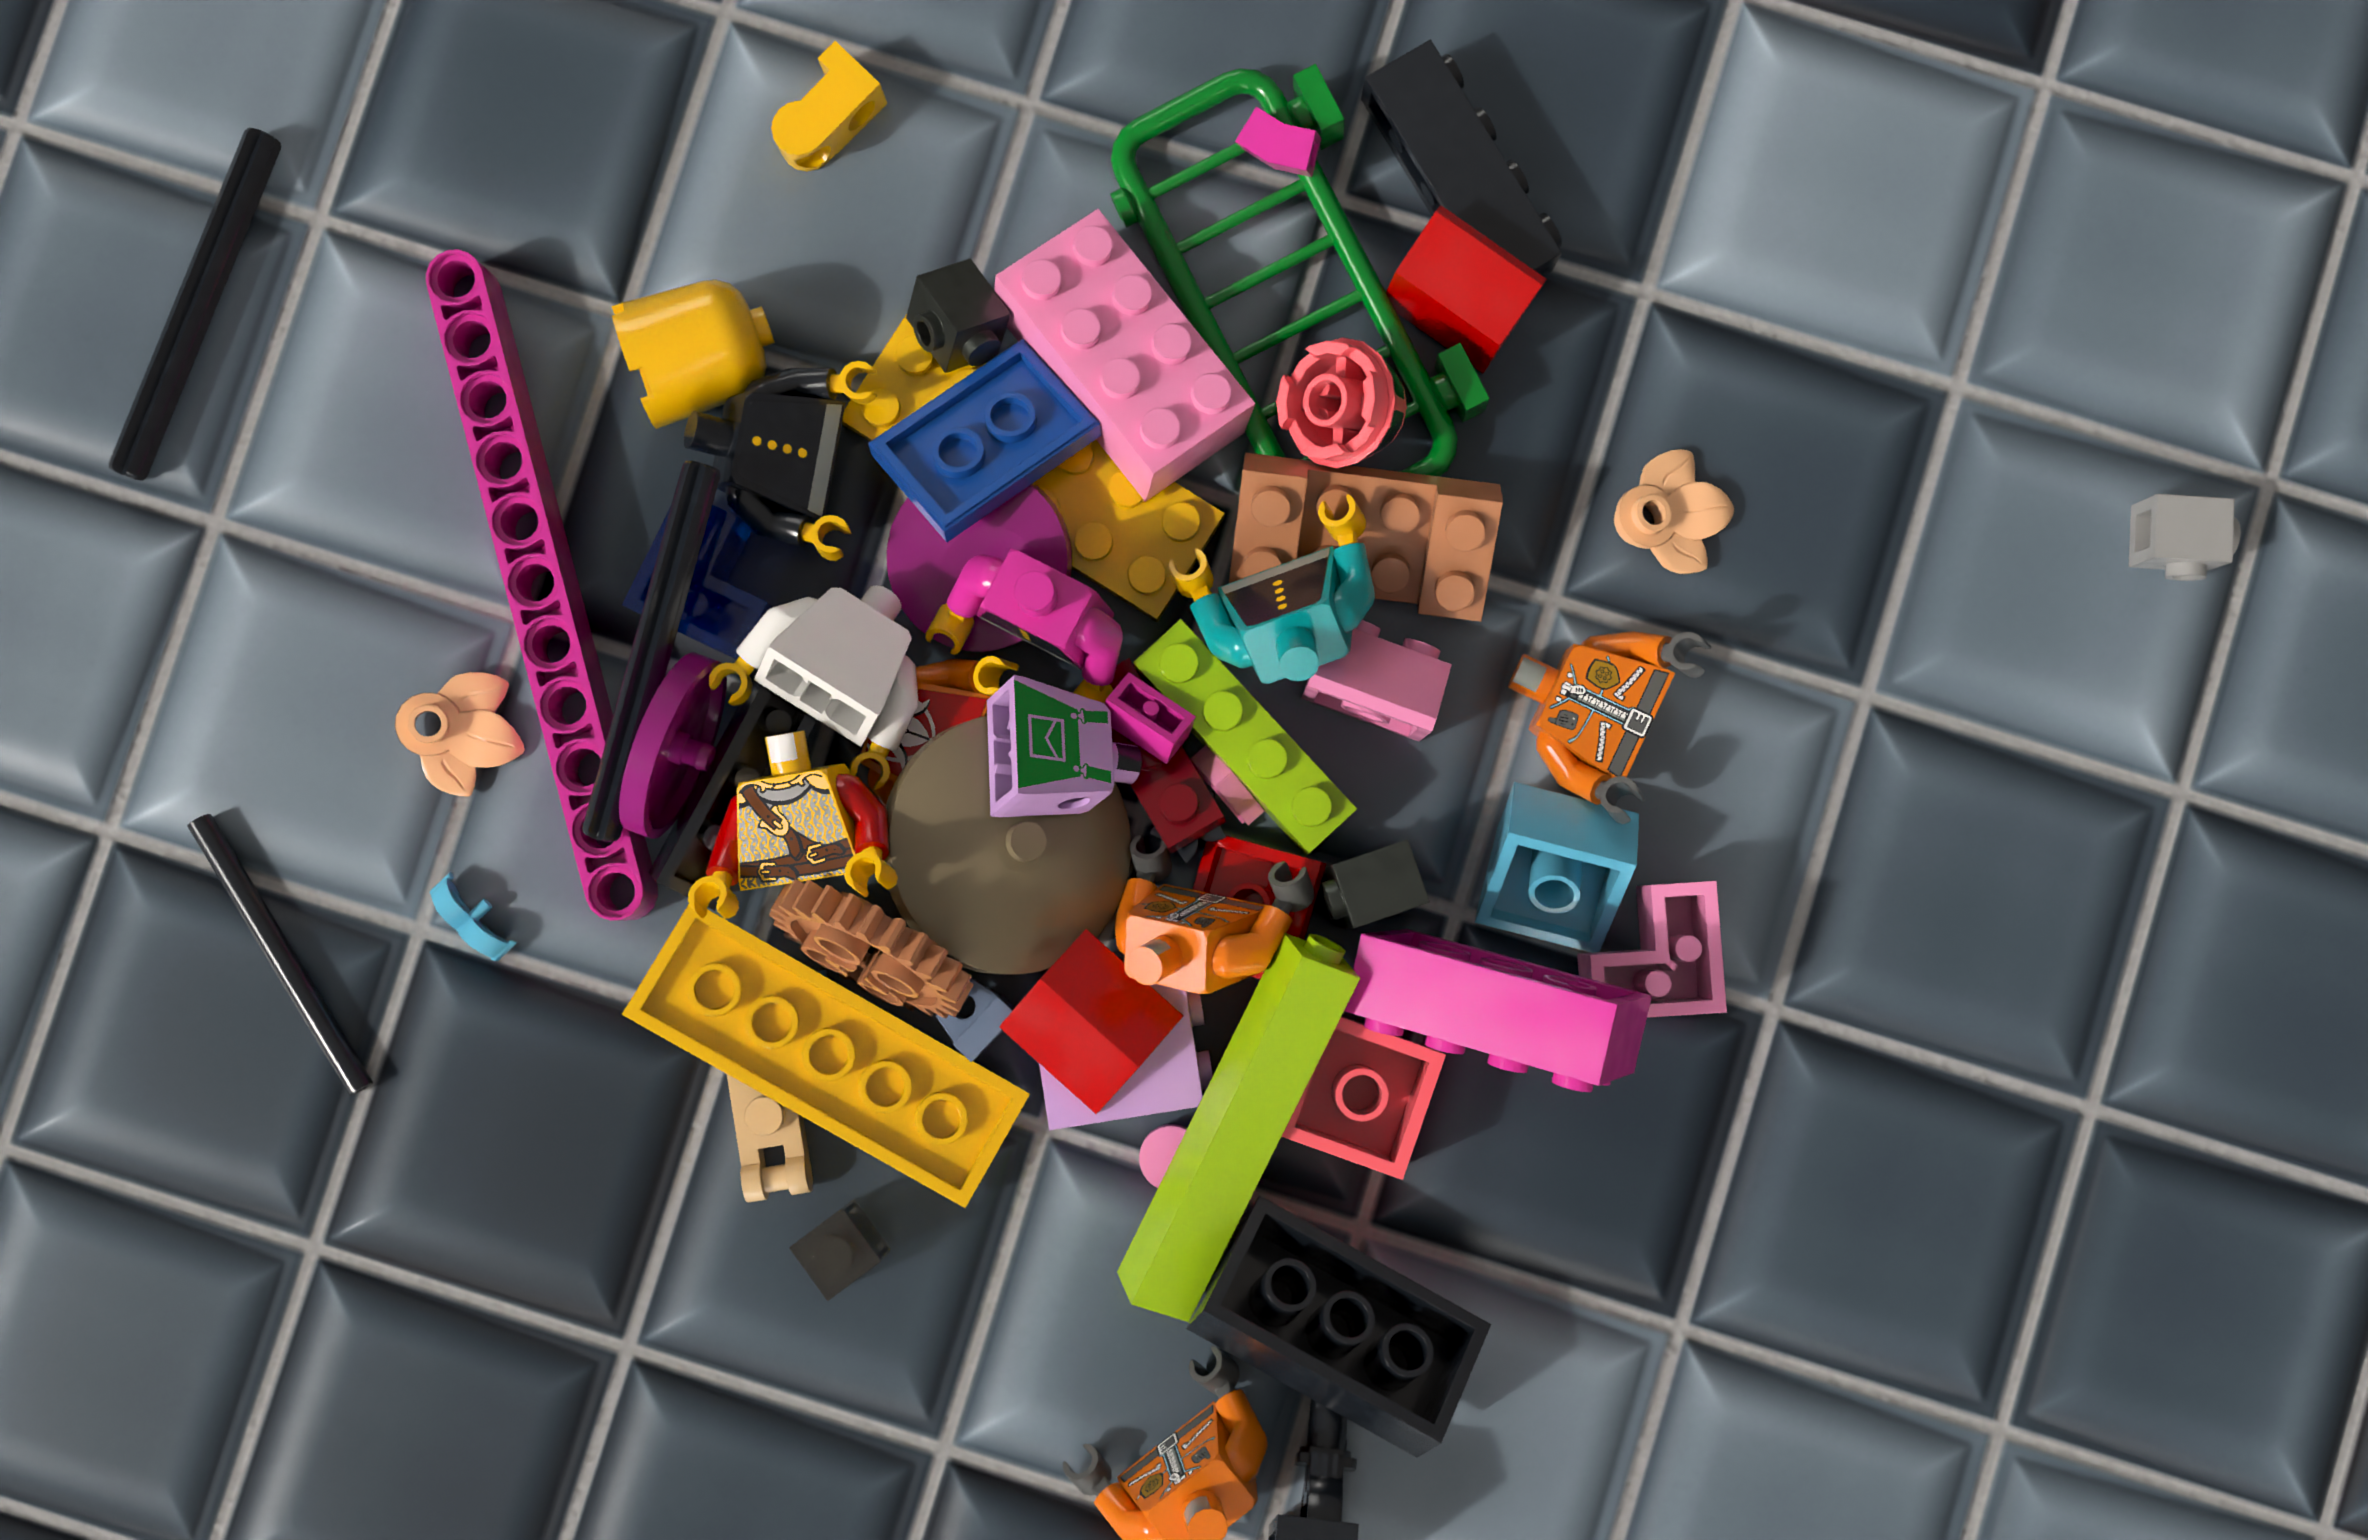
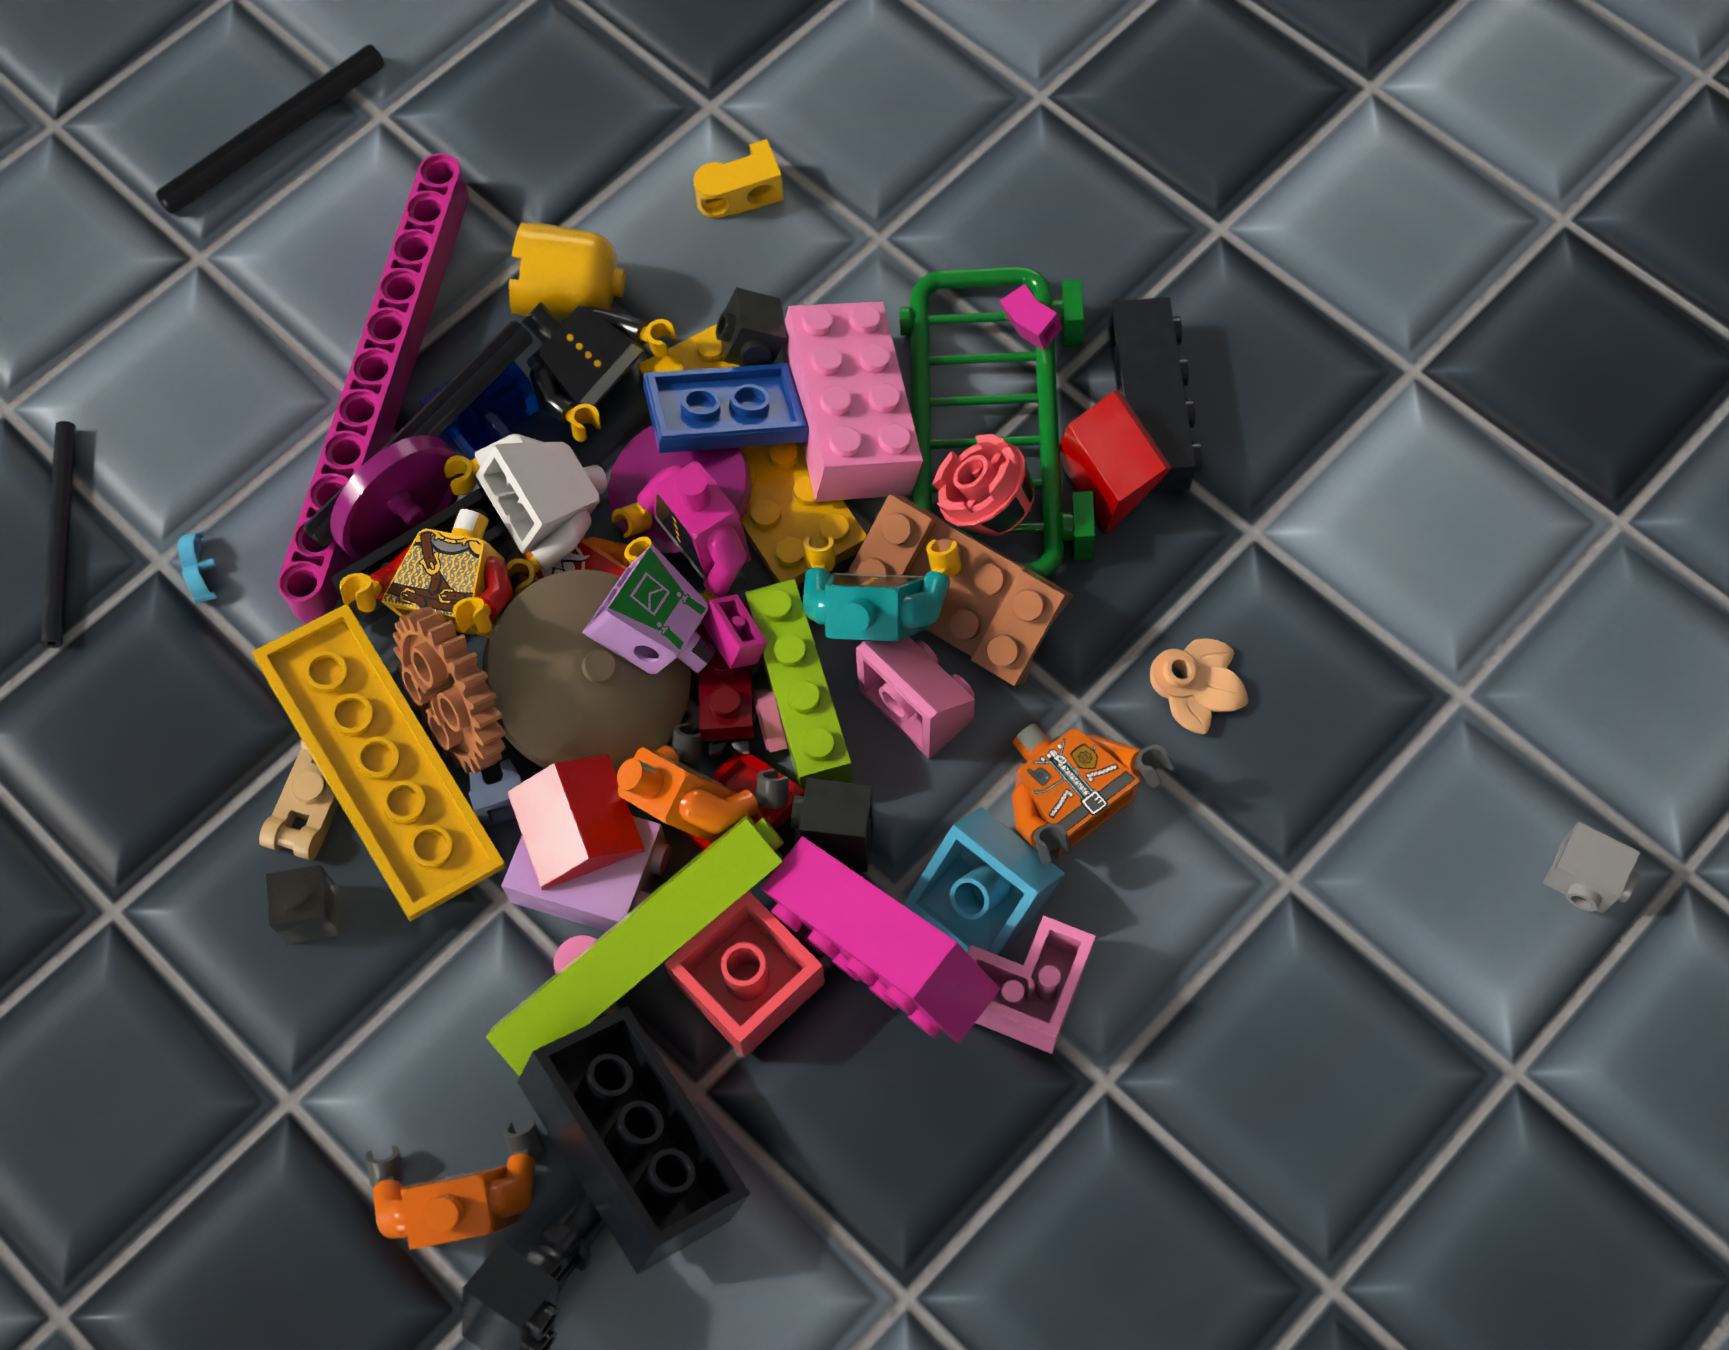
camera: 25 degrees right, 20 degrees down
(468, 732) = (271, 450): light nougat plate -> none

